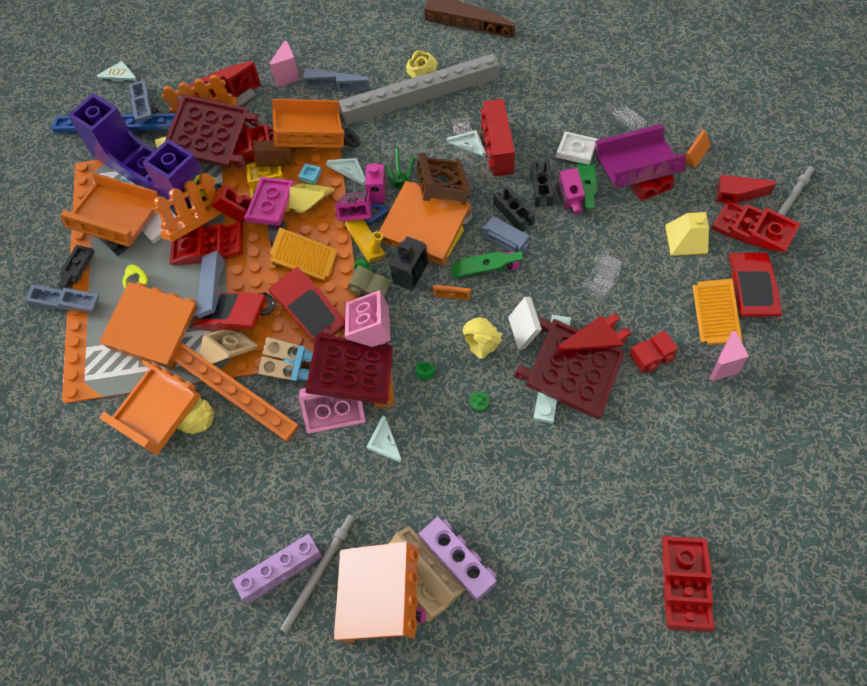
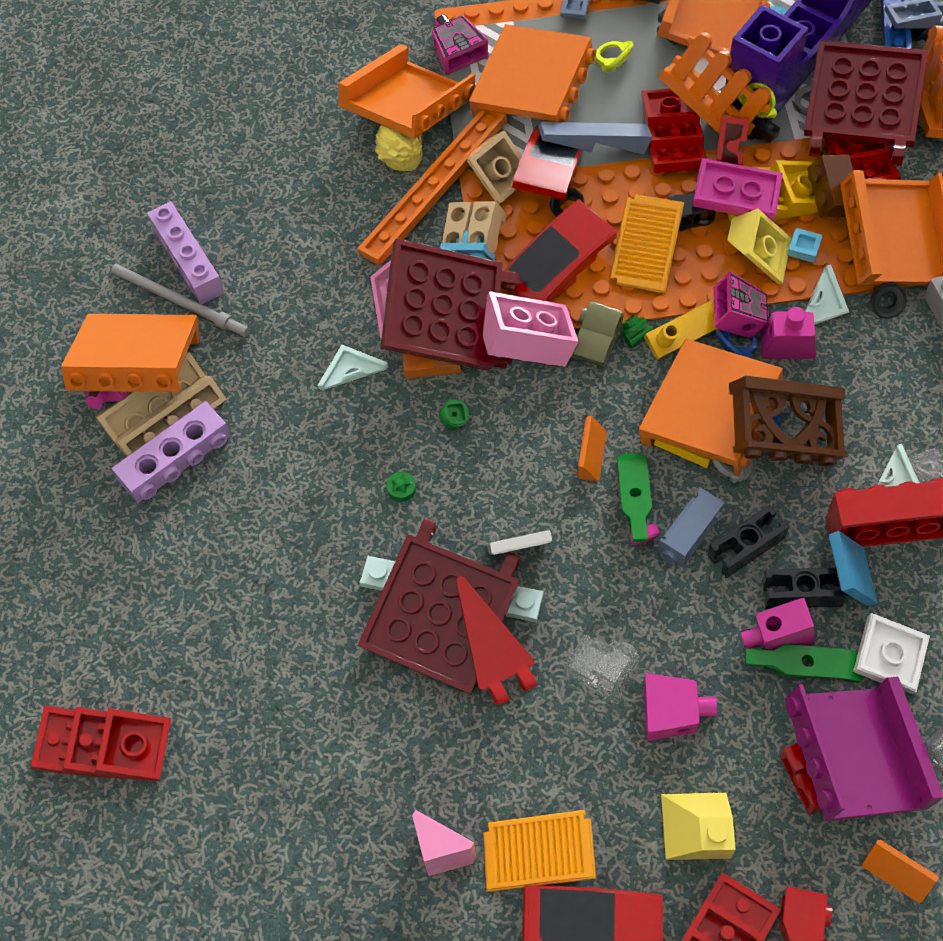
camera: 90 degrees right, 0 degrees up
(104, 379) = (458, 43): none -> torso
(399, 176) = (808, 371): green plant -> none
(409, 263) = (629, 380): black hinge -> none
(481, 337) = (498, 482): light yellow hair -> none
(529, 158) = (852, 568): none -> dark azure tile
(623, 244) = (674, 706): none -> dark pink torso
(653, 352) = (466, 737): red brick -> none

